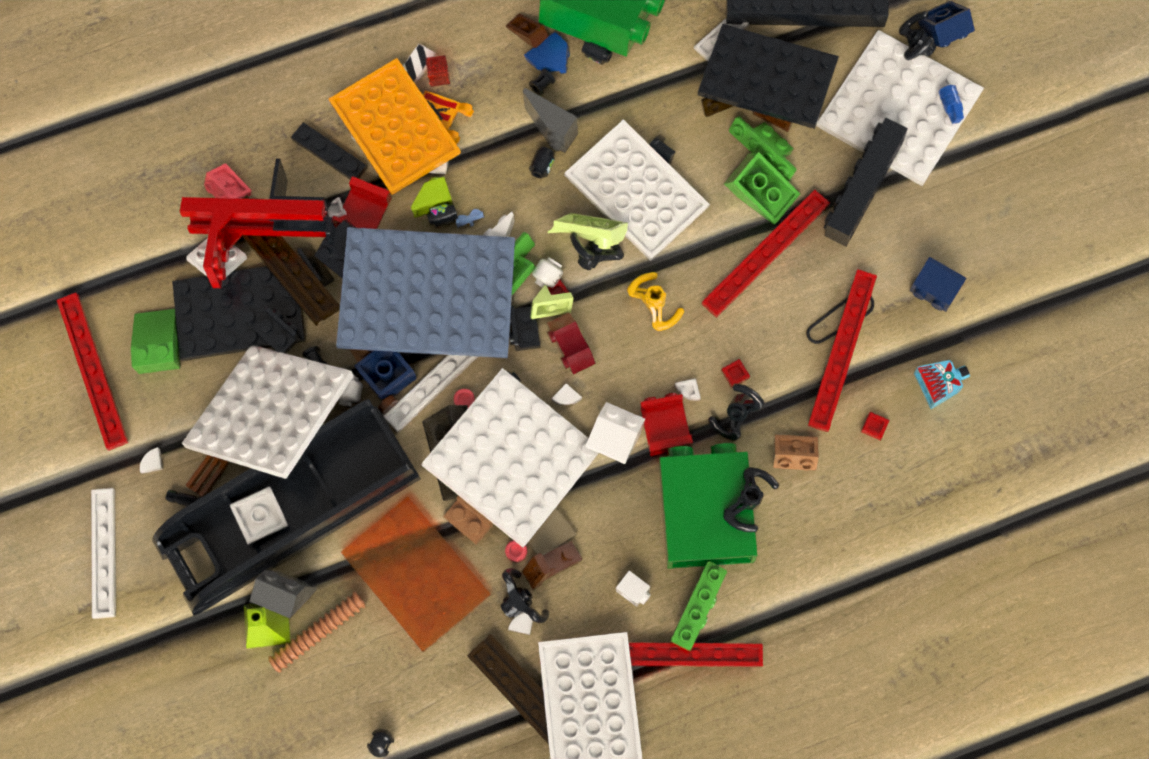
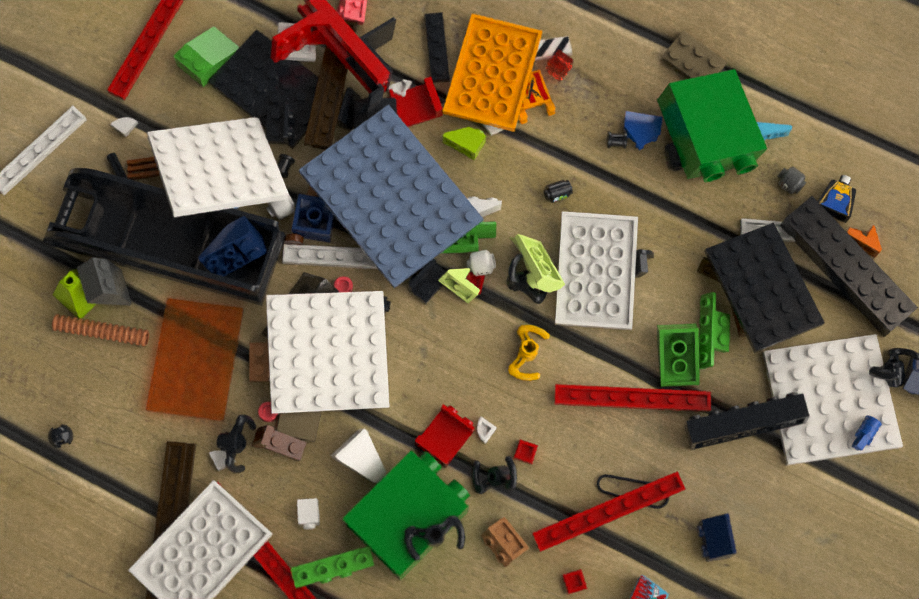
camera: 40 degrees right, 0 degrees up
(258, 515) = (142, 223): white tile -> none
(355, 455) = (233, 248): none -> dark blue slope
(442, 215) = (459, 158): black brick -> none
(474, 215) = (468, 174): light blue piece -> none
(528, 30) = (646, 98): reddish brown slope -> none
(553, 122) = (592, 177): dark grey slope -> none
(566, 396) = (406, 351): white tile -> none
(571, 343) = (444, 322): dark red brick -> none
(615, 432) = (406, 406): white slope -> none
(623, 505) = (361, 456): none -> white slope

